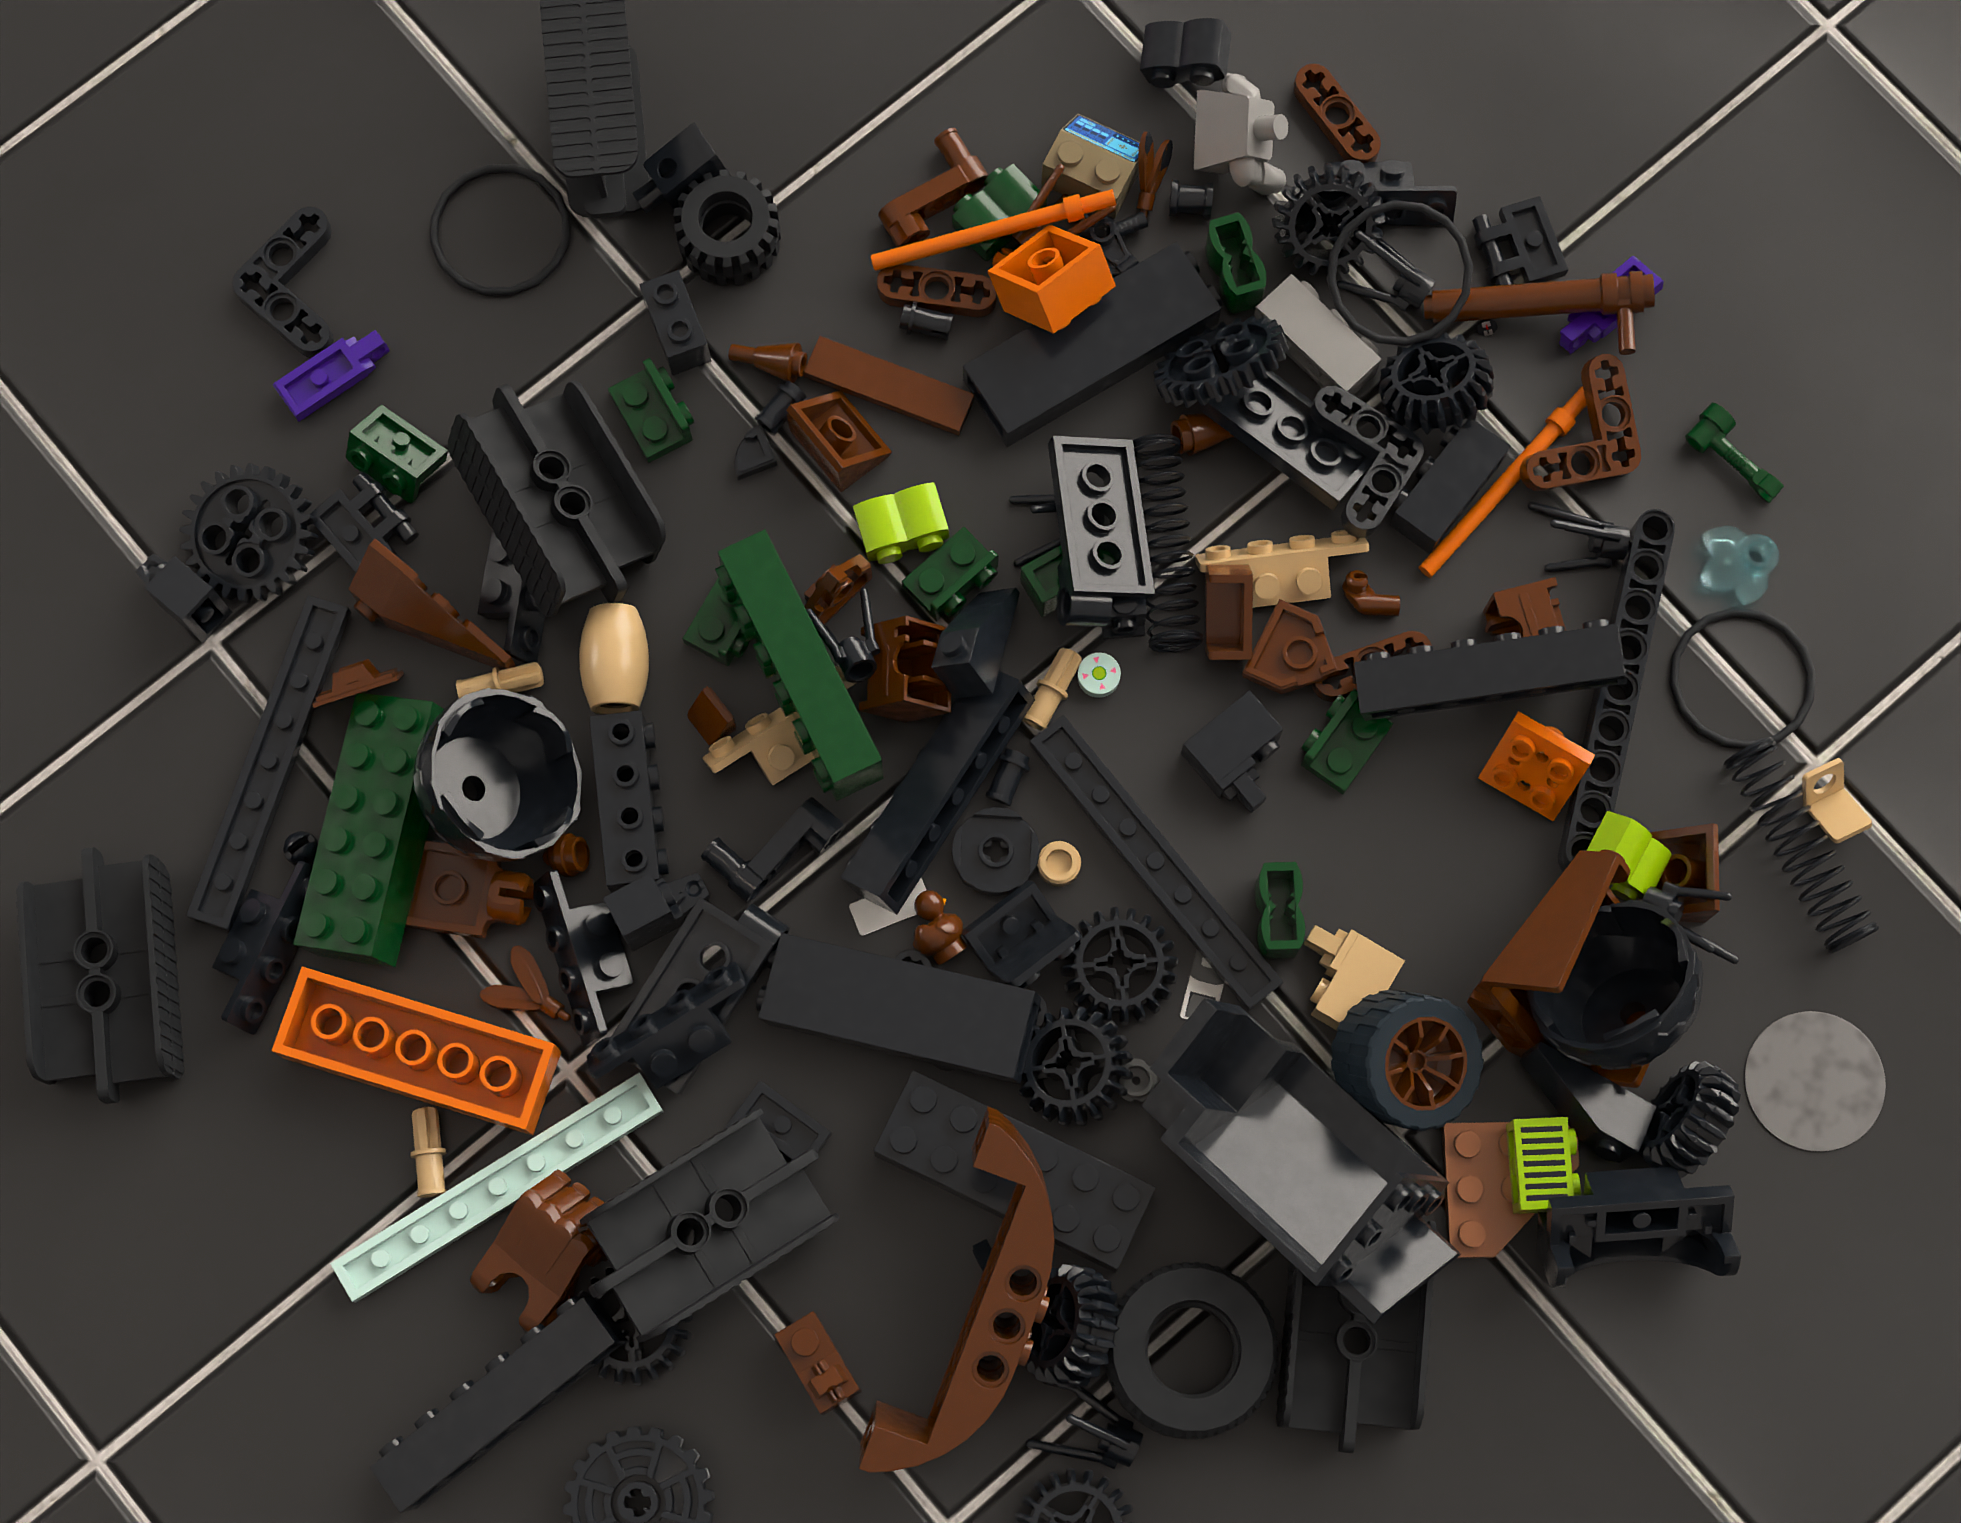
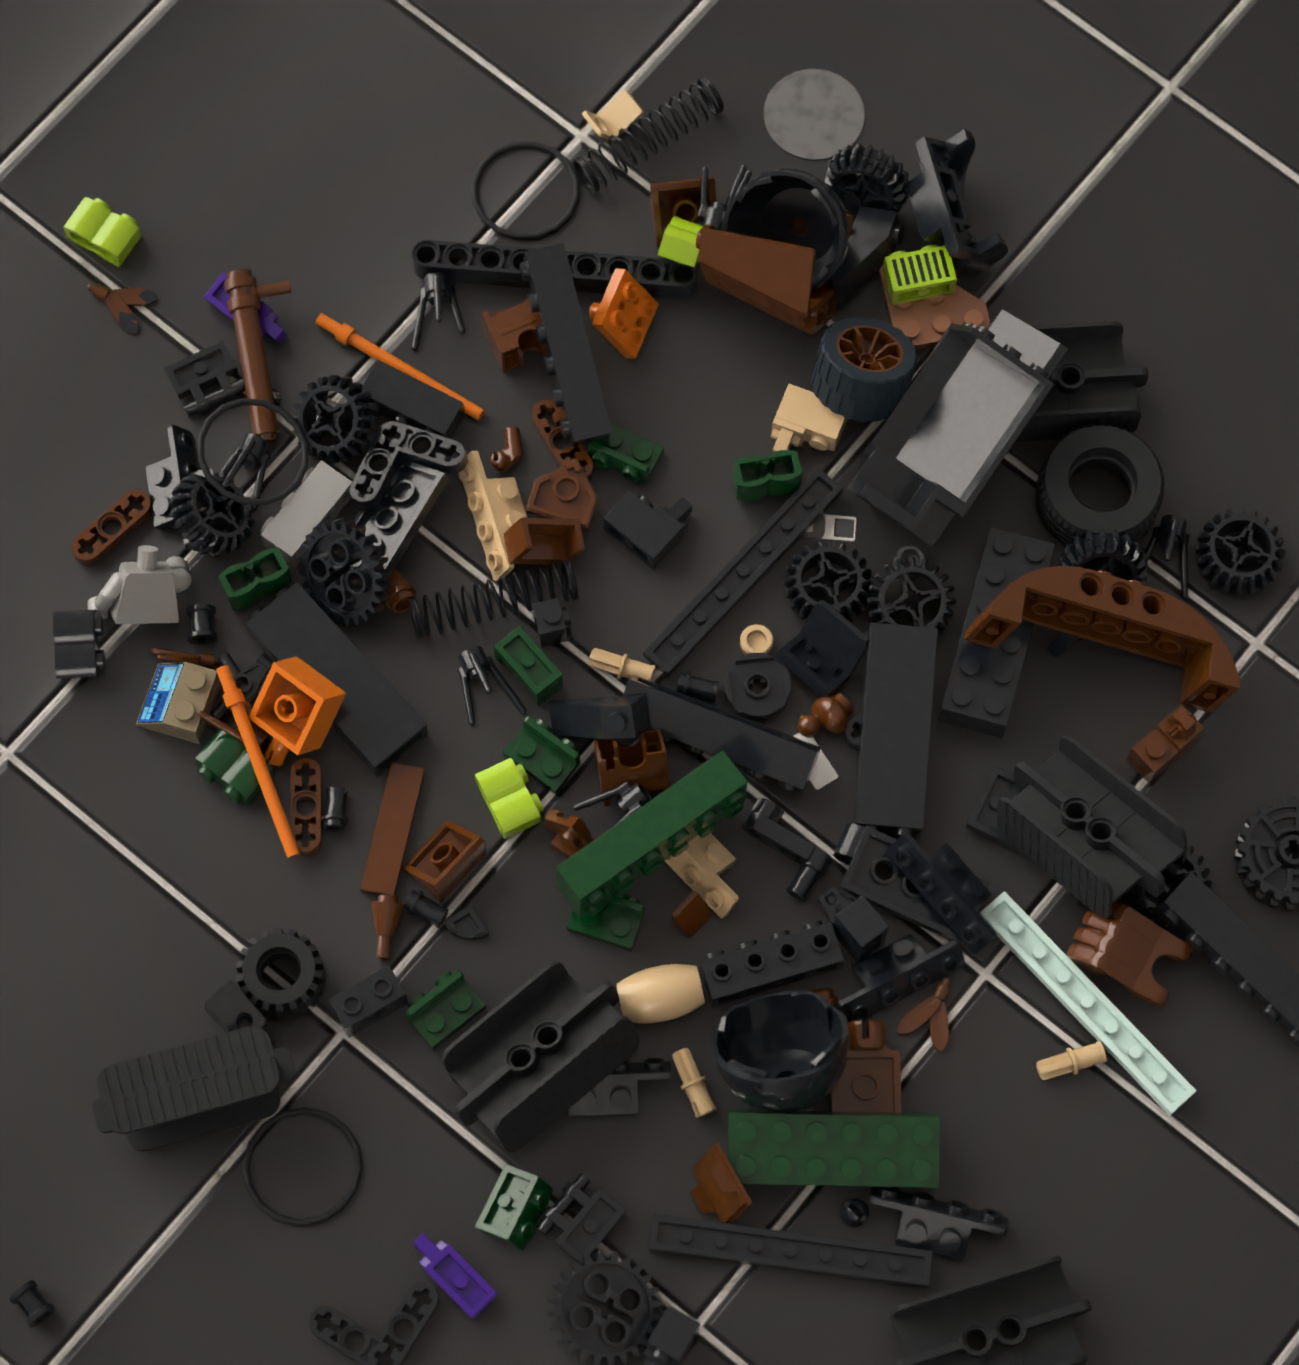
camera: 100 degrees left, 5 degrees down
(399, 599) = (639, 1169): reddish brown wedge -> none
(417, 1050) = (999, 1079): orange brick -> none
(906, 214) = (203, 797): reddish brown beam -> none
(1083, 578) = (542, 642): hinge -> none
(1098, 675) = (604, 634): light aqua tile -> none
(1600, 450) = (364, 302): reddish brown beam -> none
(1642, 157) = (120, 299): none -> reddish brown piece
(1711, 432) = (339, 228): dark green brick -> none
(1732, 564) = (438, 205): clear light blue plate -> none
(1740, 148) = (103, 231): none -> lime brick

